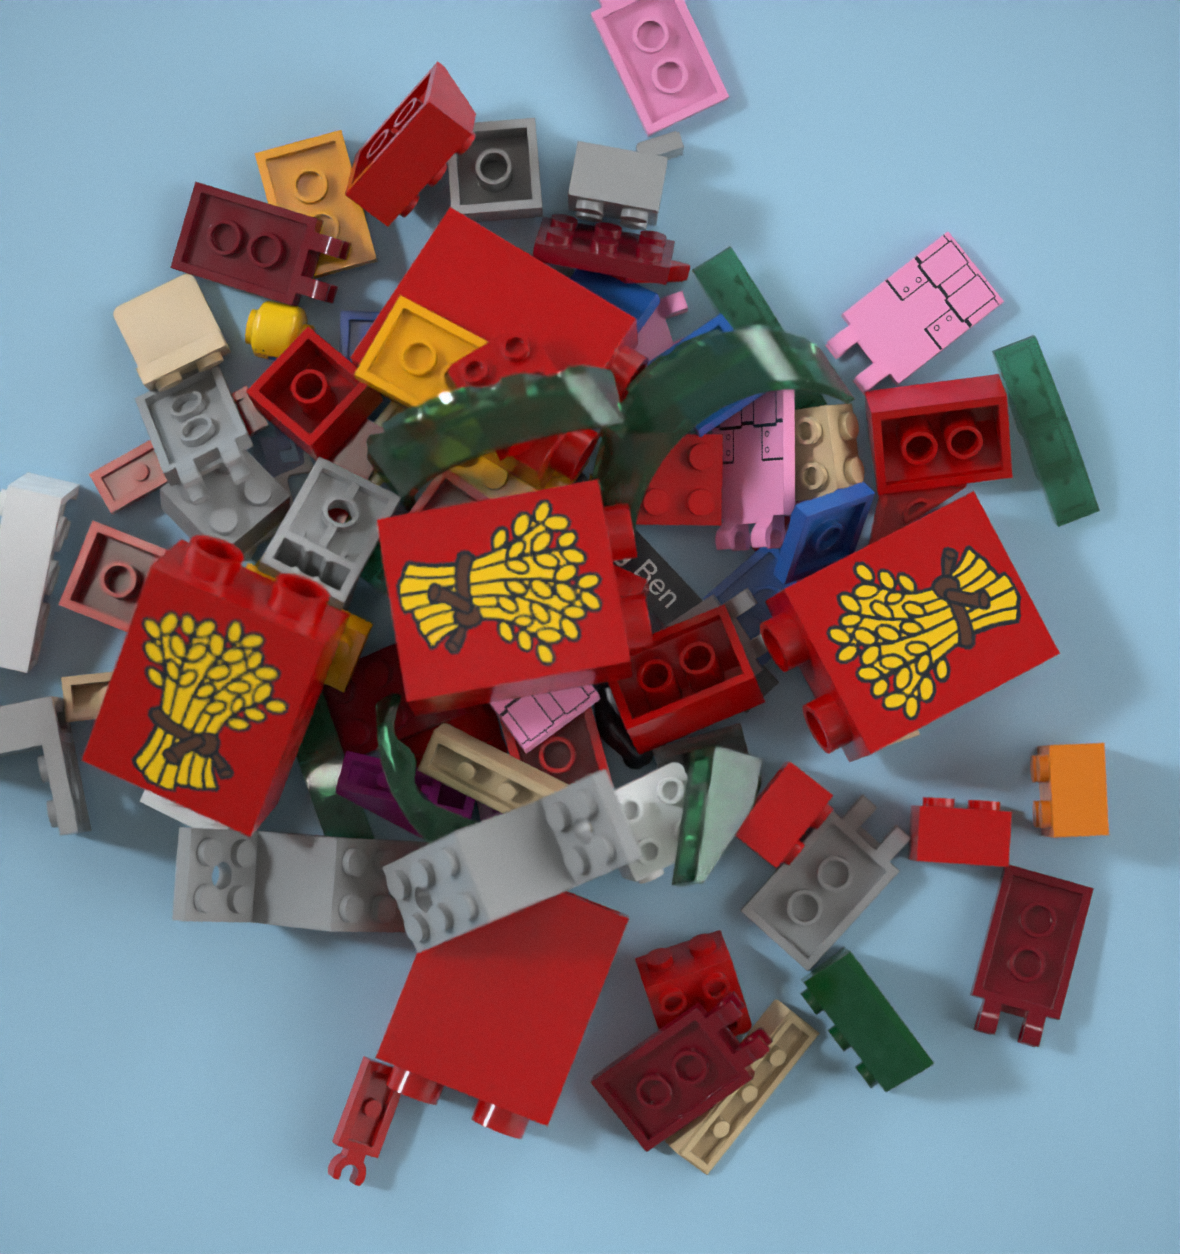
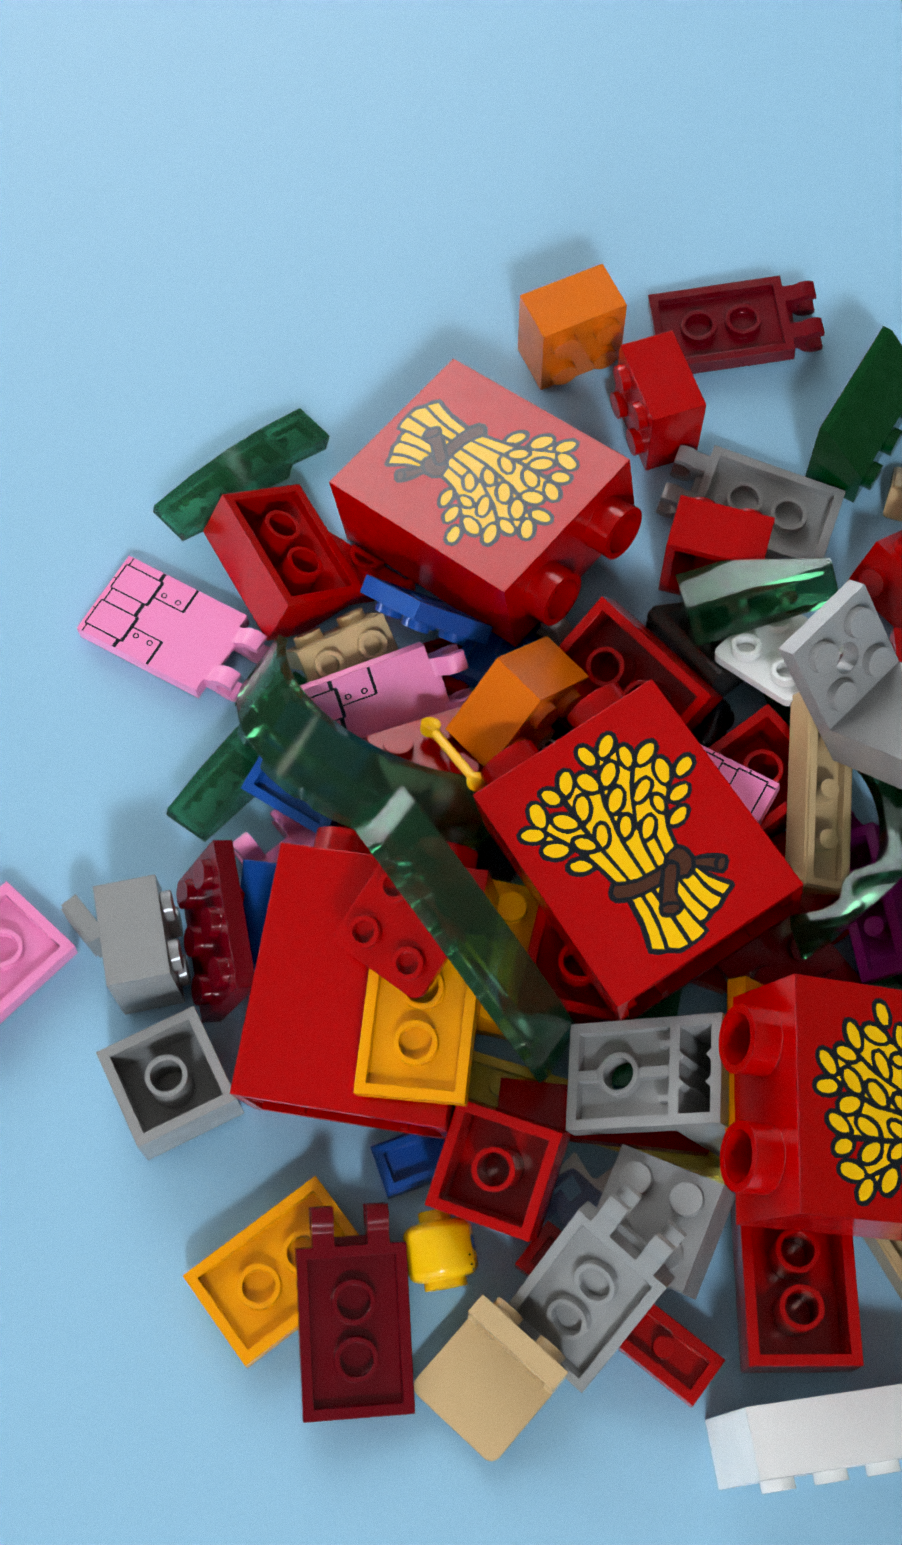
camera: 110 degrees left, 20 degrees down
(412, 147) = (174, 1173): red slope -> none
(690, 570) = (518, 700): none -> orange brick
(701, 487) = (430, 728): none -> yellow hinge

